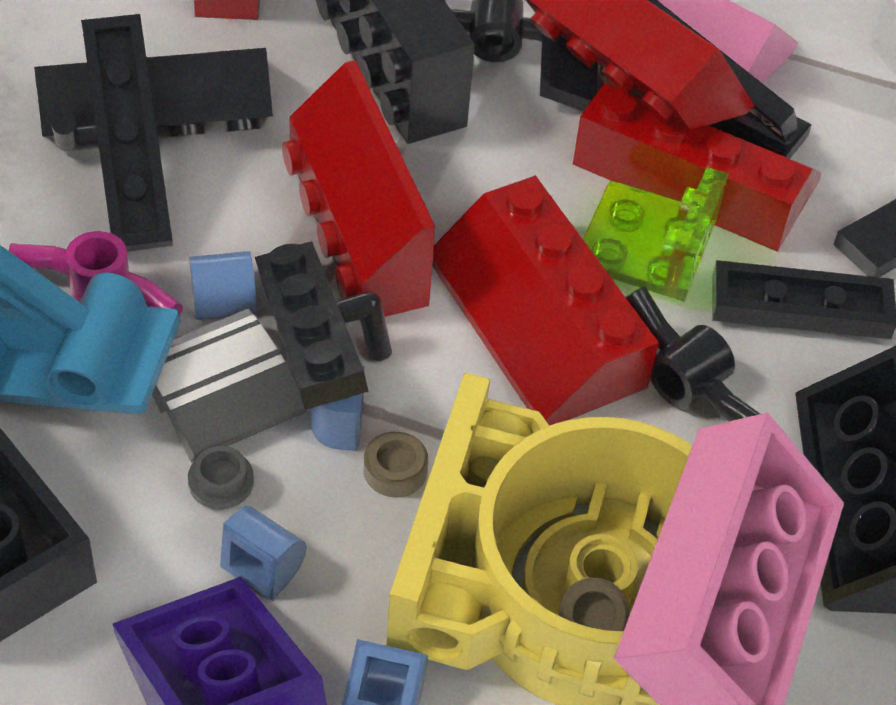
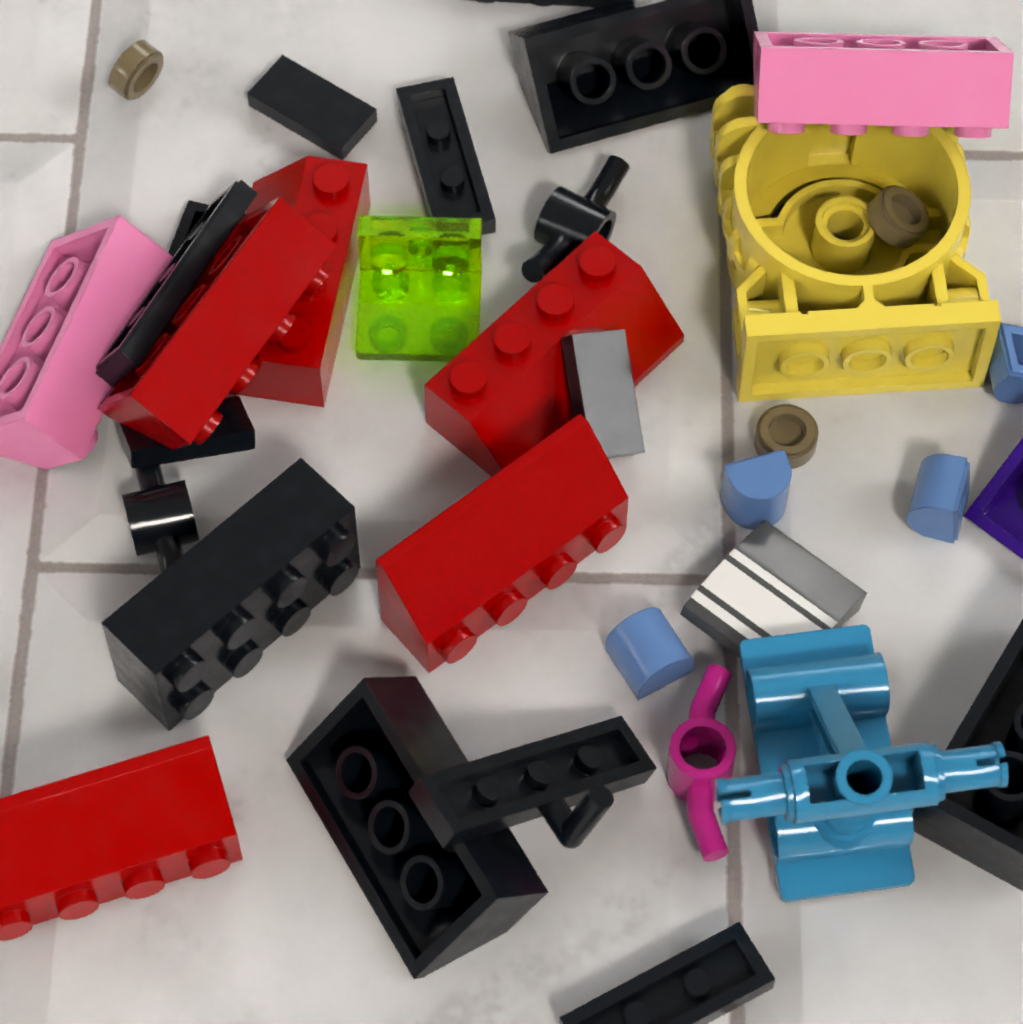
camera: 105 degrees left, 10 degrees up
(220, 478) = (877, 564): dark grey plate -> none
(315, 326) = (689, 529): black plate -> none
(484, 311) = (604, 389): none -> tile

